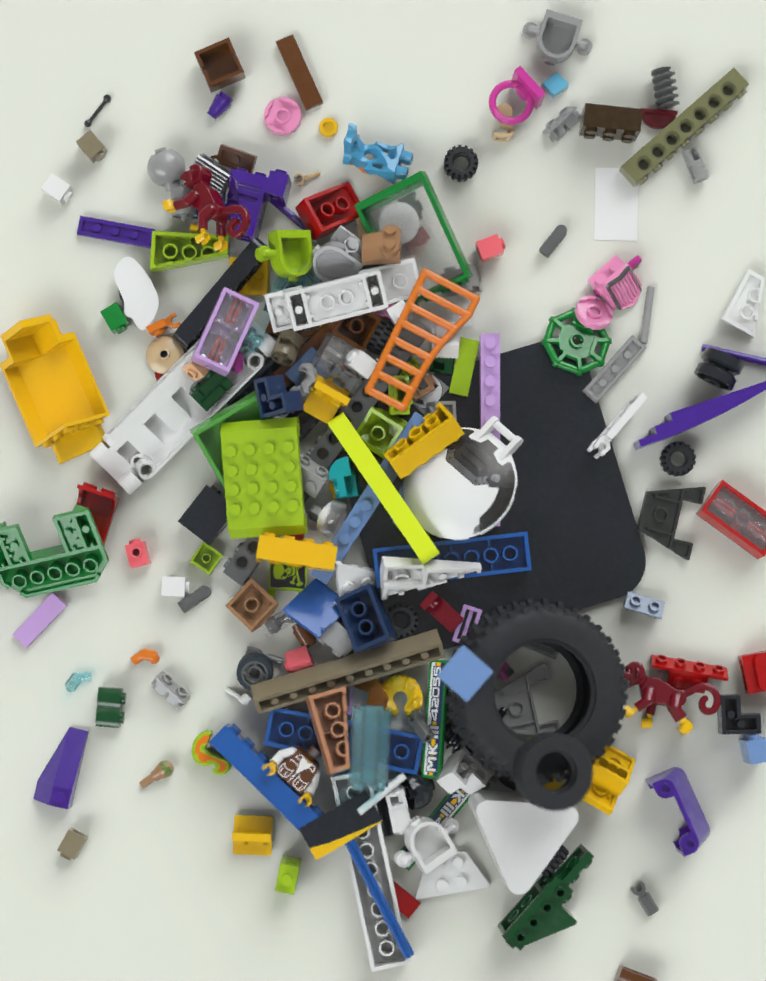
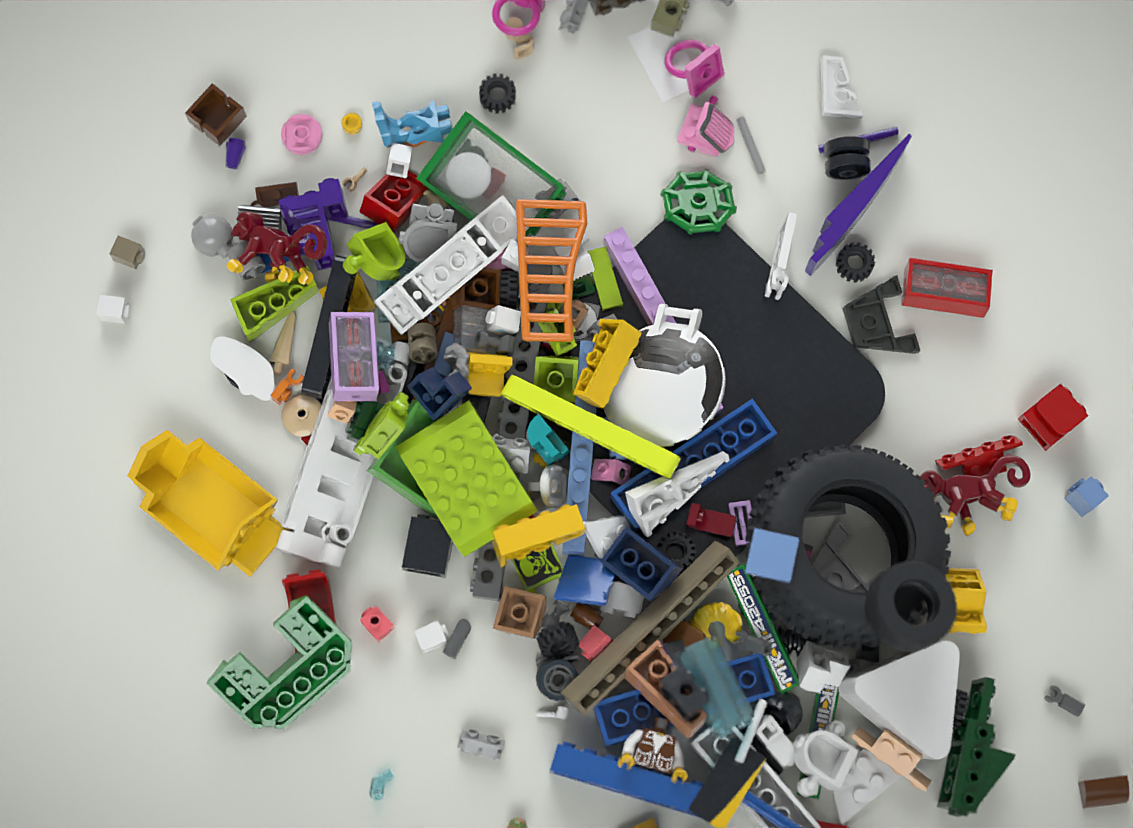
camera: 30 degrees left, 10 degrees down
(39, 620) = (309, 743): lavender tile -> none
(107, 98) = (119, 201): black hinge -> none
(109, 707) = (428, 793): dark green brick -> none
(115, 232) = (192, 322): dark purple tile -> none
(115, 318) = (235, 404): green brick -> none
(145, 654) = (436, 721): orange arm -> none
(176, 292) = (283, 347): none -> tan bar
(206, 558) = (448, 592): lime piece -> none
(207, 757) = (554, 792): lime animal -> none
(218, 404) = (384, 427): none -> lime piece
(270, 642) = (557, 640): none -> black tyre
(299, 72) = (296, 86): reddish brown tile -> none
(337, 753) = (686, 706): none -> black brick
(349, 180) = (399, 160): none -> white brick
(382, 246) = (465, 200): medium nougat slope -> none
(383, 528) = (609, 470): none -> bright pink bracket
(485, 869) = (895, 753): none -> light nougat bracket
(490, 248) = (568, 156): coral brick -> none
(553, 240) = (624, 121): dark grey bar -> none
(593, 312) = (700, 166): bright pink tile -> none
(614, 369) = (748, 210): light grey tile -> none
(641, 231) = (700, 72): none -> dark pink tile
(644, 605) = (905, 414): hinge -> none
(675, 783) = (1075, 605): dark purple windscreen -> none
(733, 721) = (1050, 480): black brick -> none

